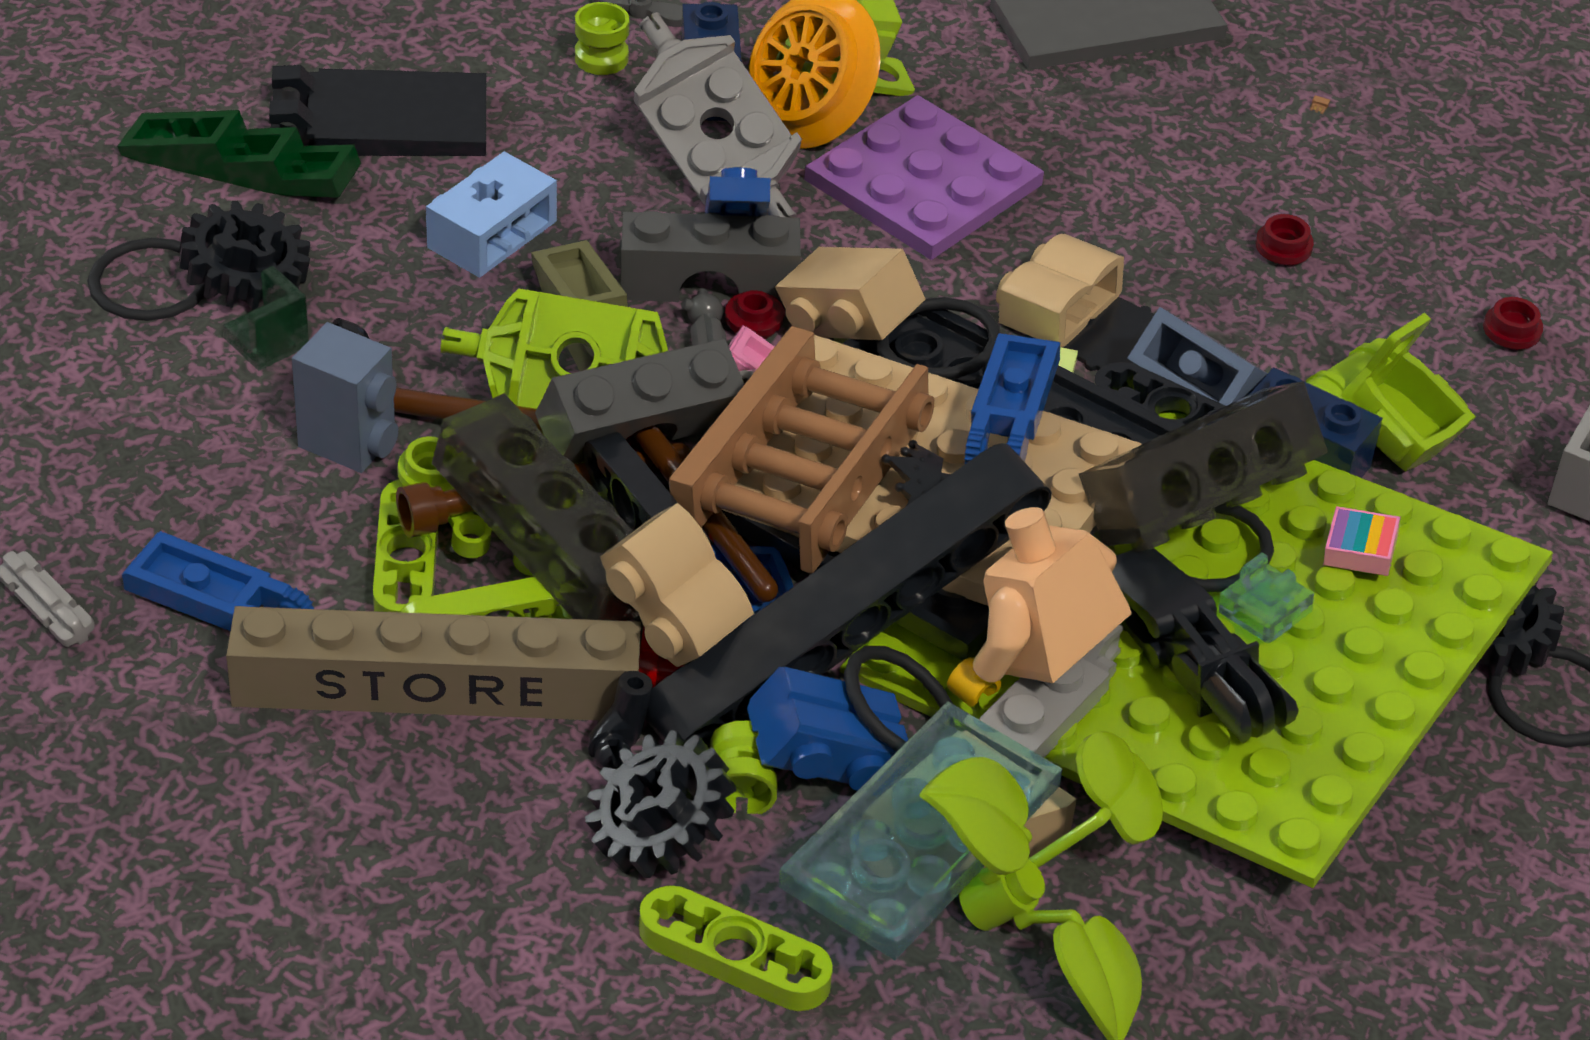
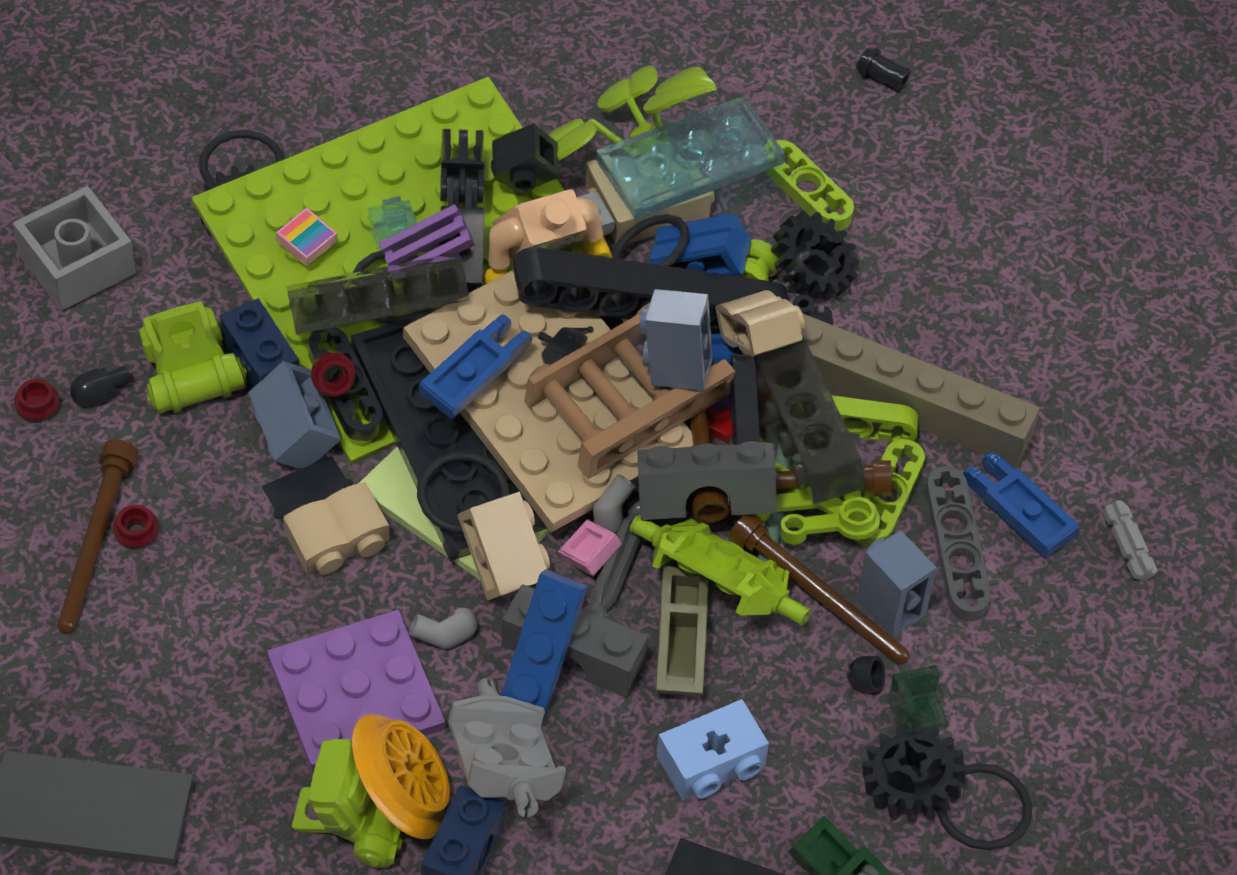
camera: 155 degrees left, 10 degrees up
(295, 522) = (959, 543): none -> dark grey beam
(755, 412) = (677, 339): none -> sand blue brick
(878, 234) = (446, 633): none -> light grey arm
(1152, 712) = (525, 159): none -> black brick
(1182, 370) = (336, 386): none -> dark red plate
(1196, 553) = (426, 235): none -> medium lavender tile
(1360, 284) = (117, 461): none -> reddish brown piece
(1462, 351) = (97, 386): none -> black cylinder

